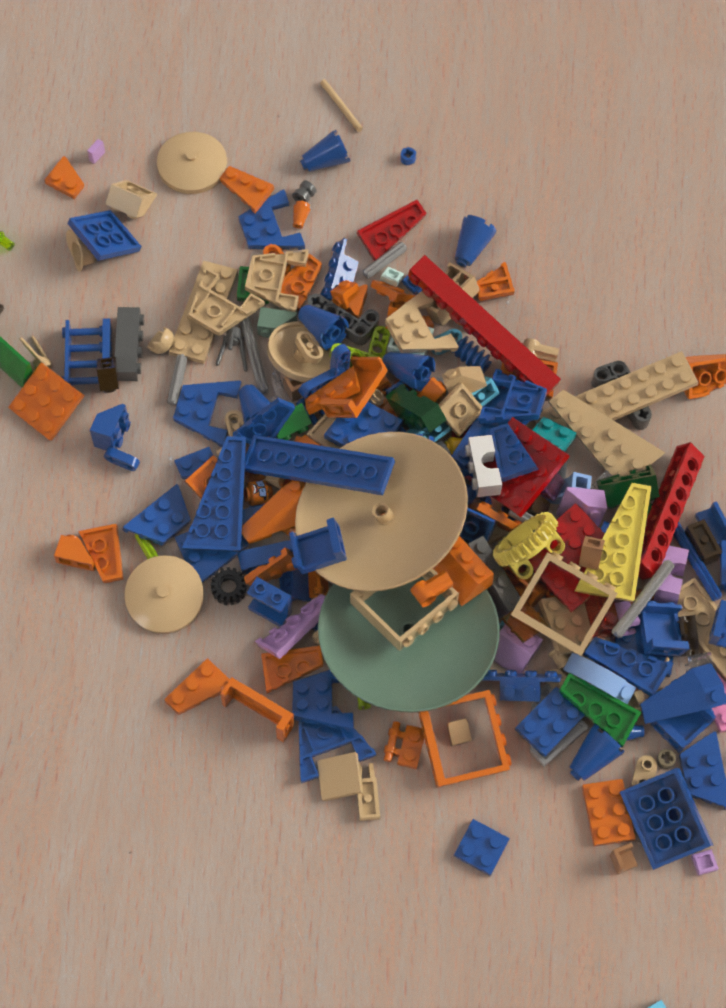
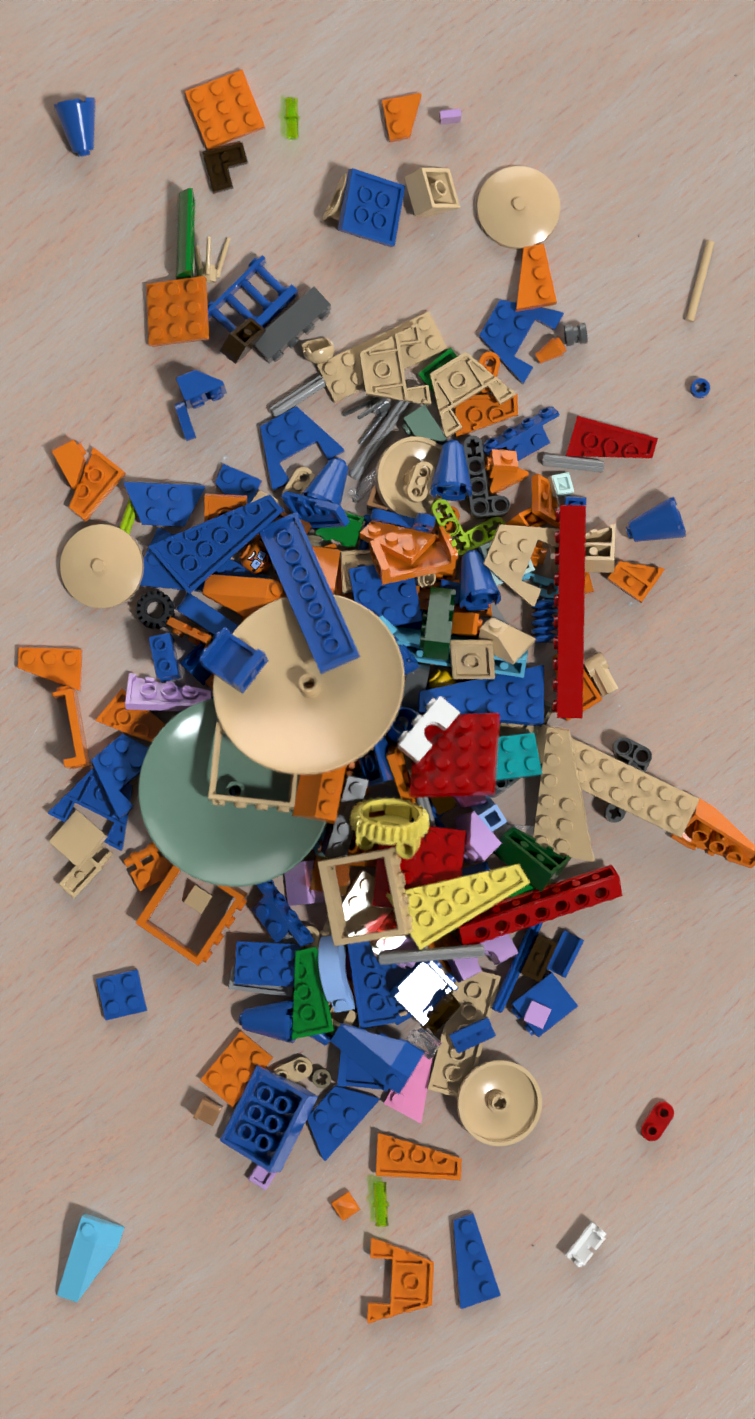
camera: 50 degrees right, 20 degrees up
(326, 153) = (631, 317): blue cone -> none
(428, 591) = (270, 782): orange piece -> none
(510, 453) = (456, 742): blue wing -> none
(522, 401) = (526, 706): blue wing -> none
(591, 552) = (427, 882): medium nougat panel -> none

